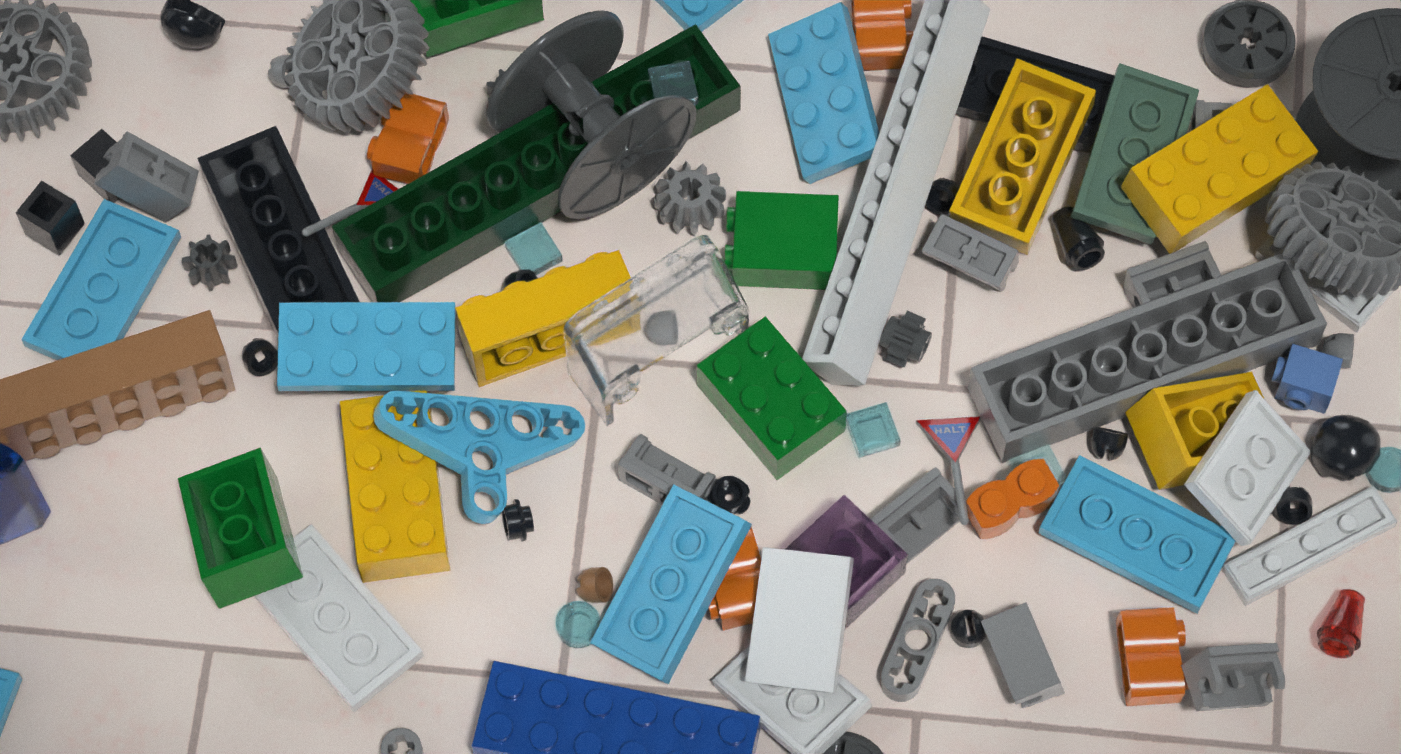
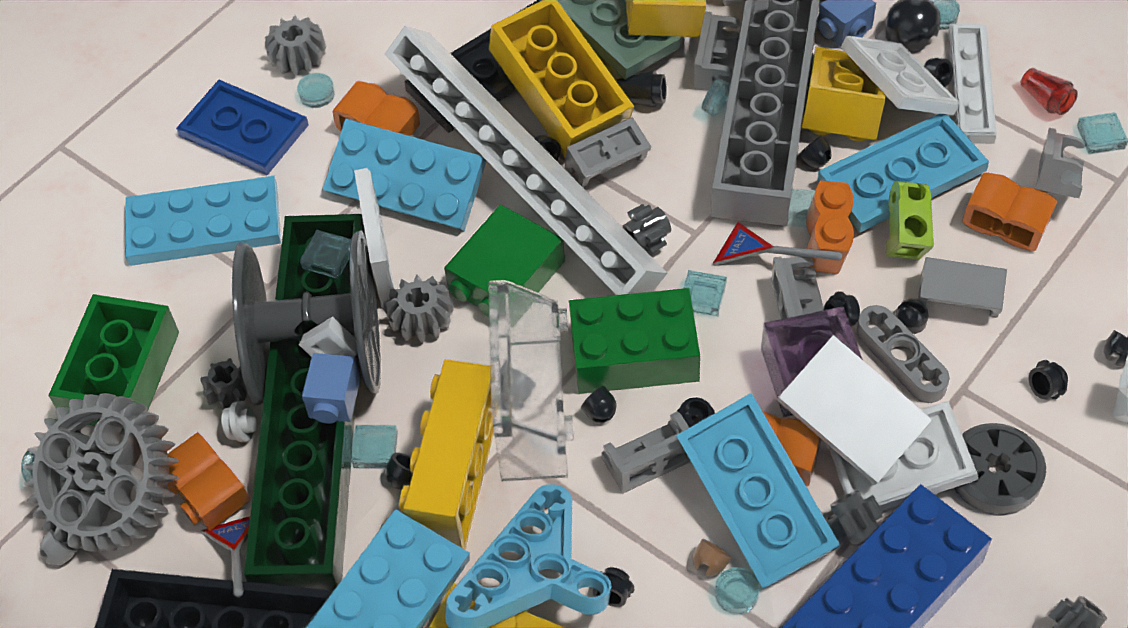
camera: 55 degrees left, 10 degrees down
(477, 128) = (239, 422): none -> white plate
(532, 178) = (331, 387): none -> medium blue brick
(568, 144) = (329, 338): none -> white plate
(689, 409) = (600, 405): none -> black hinge
(698, 679) = (854, 517): none -> dark grey gear
(730, 112) = (374, 234): none -> white tile
(926, 560) = (849, 303): none -> black plate
(1069, 565) = (910, 221): none -> lime leg
(1109, 307) = (716, 97): none -> clear light blue tile
(1326, 703) = (1102, 133): none -> clear light blue tile

